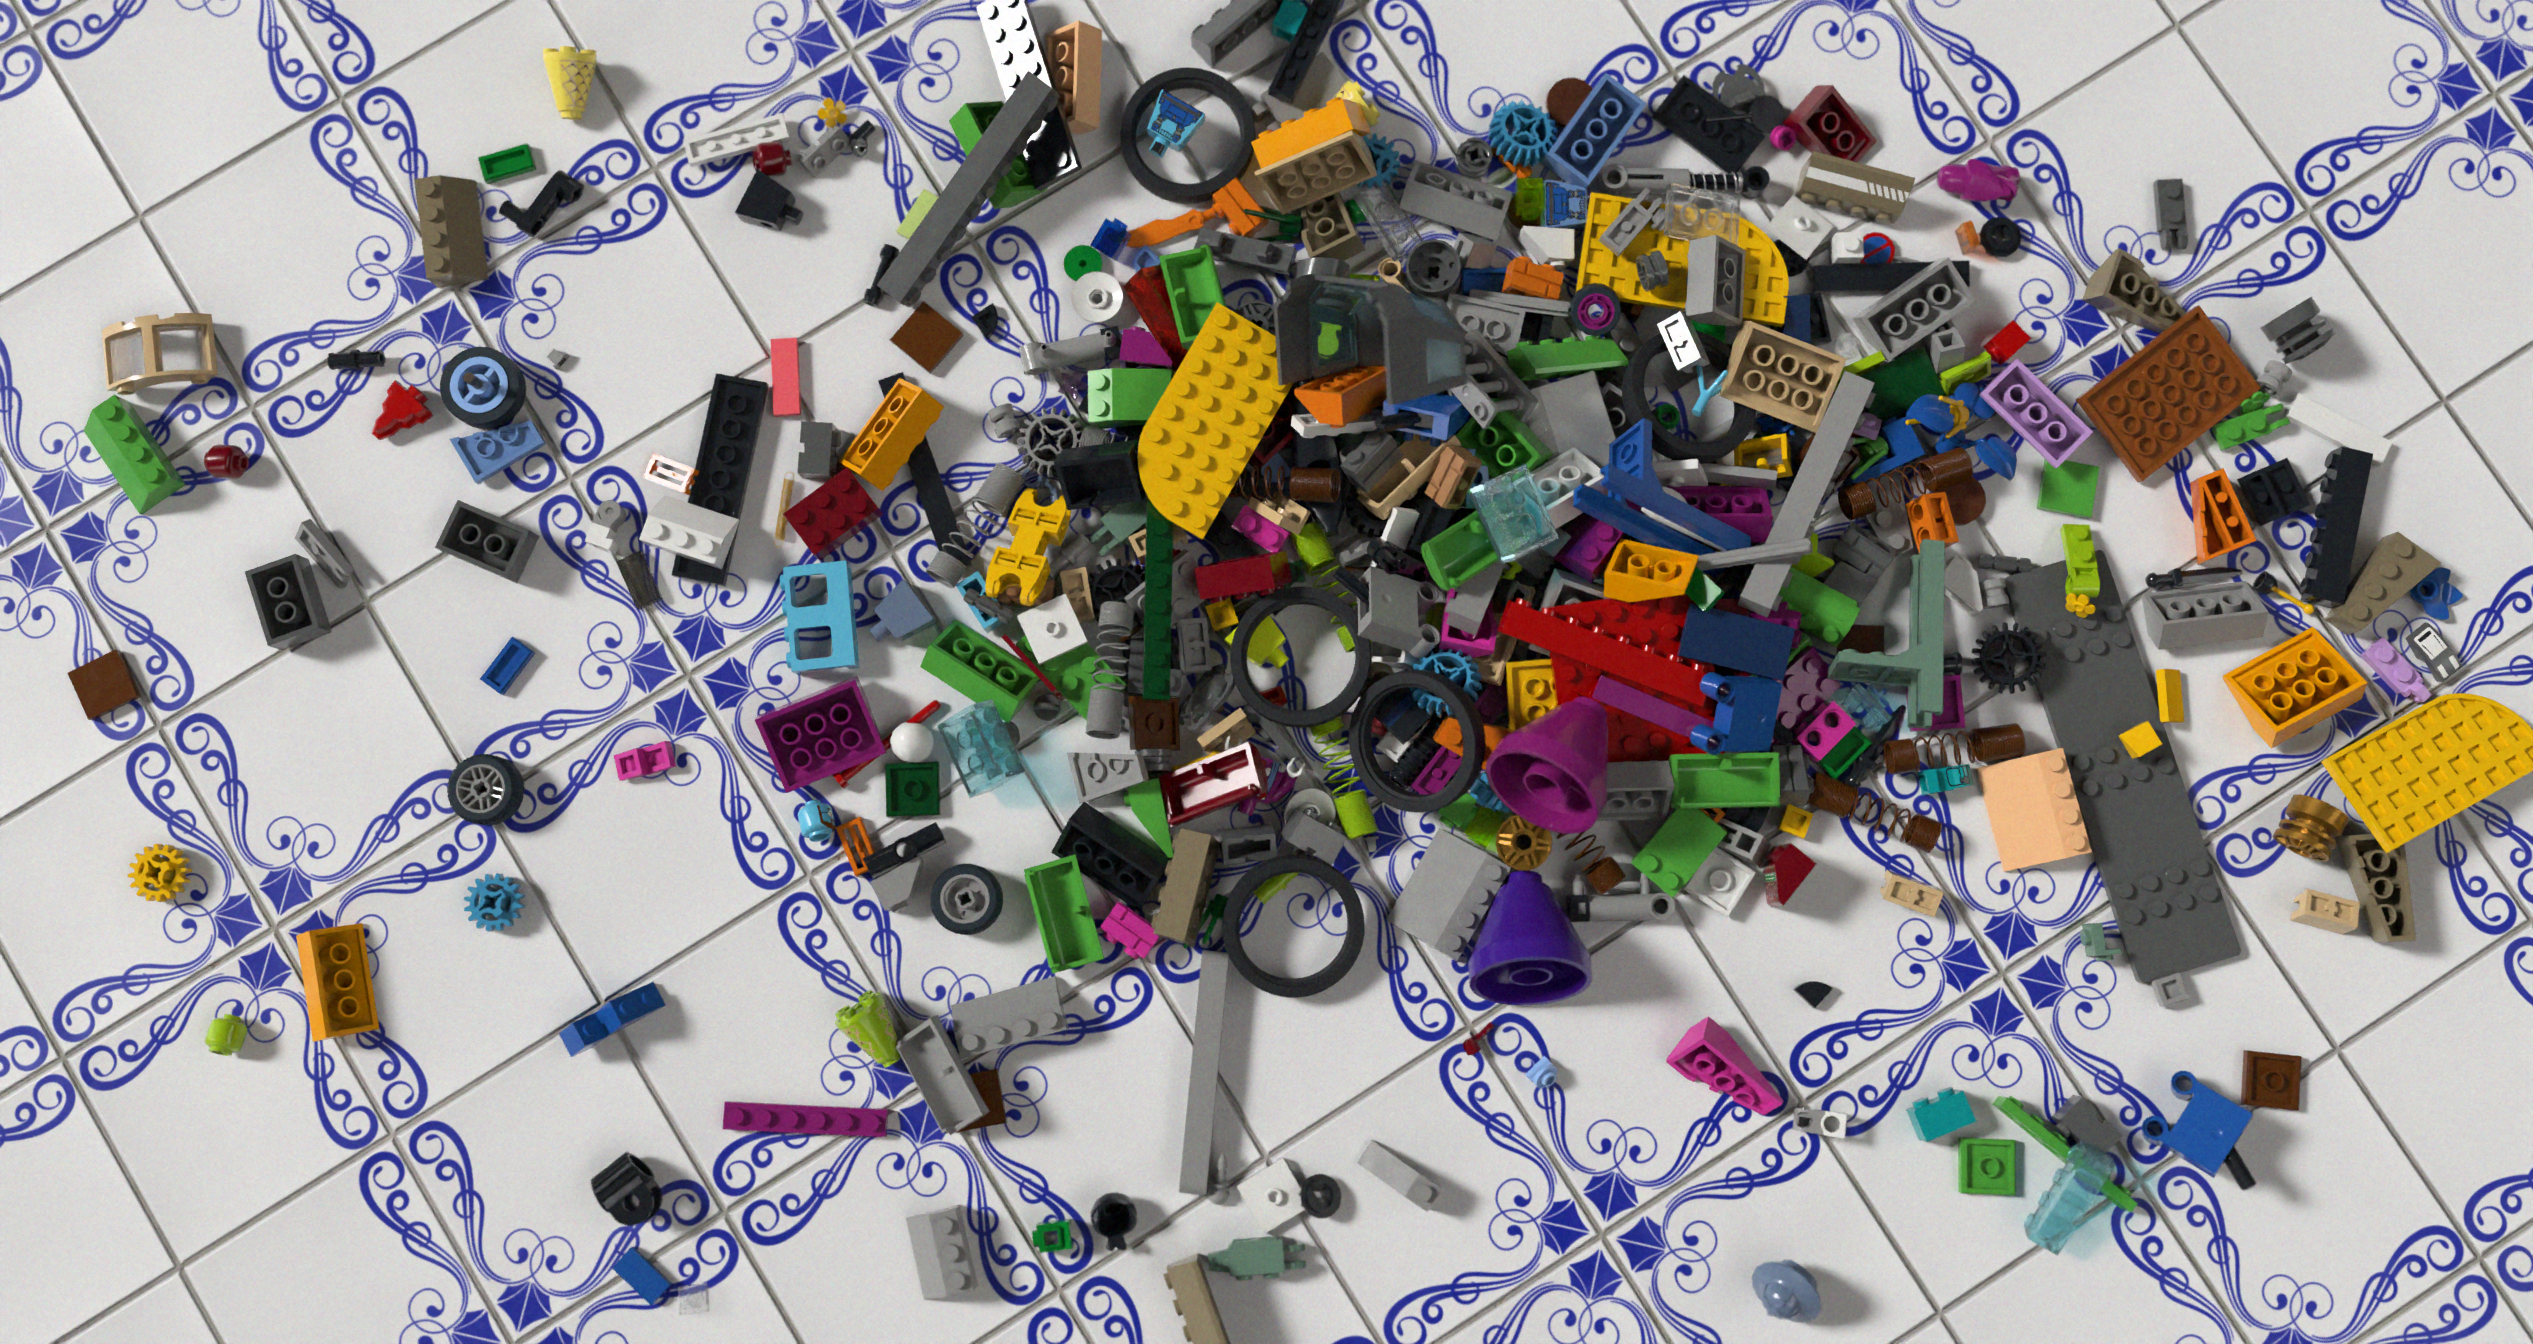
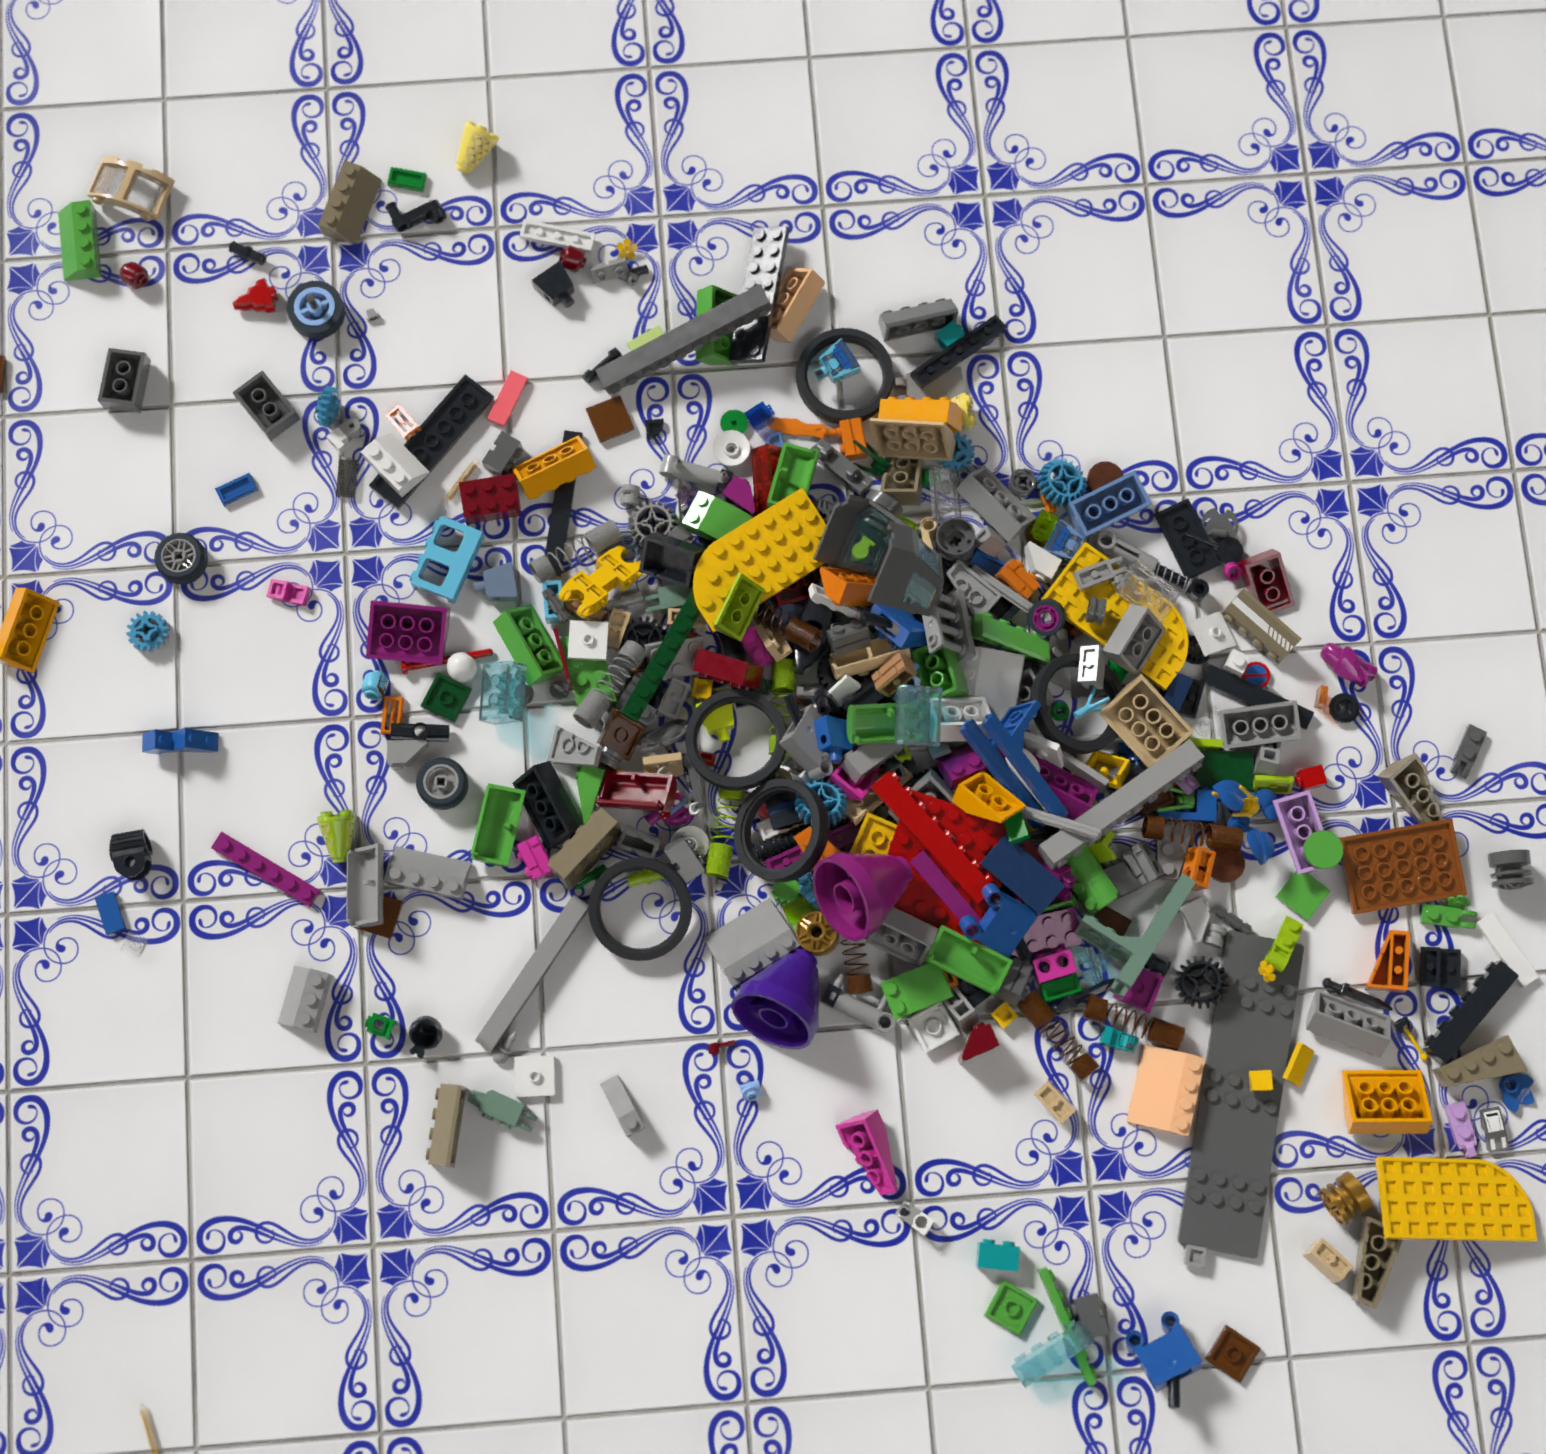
camera: 25 degrees right, 5 degrees down
(324, 553) = (162, 362): light grey hinge -> none
(496, 450) = (304, 352): medium blue wing -> none
(566, 502) = (328, 406): none -> dark azure gear
(1220, 492) = (739, 607): none -> lime slope
(1331, 1195) = (571, 1096): black gear -> none
(1418, 593) = (832, 737): none -> blue torso
(1787, 1291) = (833, 1314): sand blue helmet -> none
(1813, 992) = (956, 1132): black tile -> none
(2072, 423) = (1323, 849): none -> bright green tile
(2093, 939) = (1160, 1194): sand green bracket -> none
(2274, 377) = (1479, 893): light grey wheel -> none

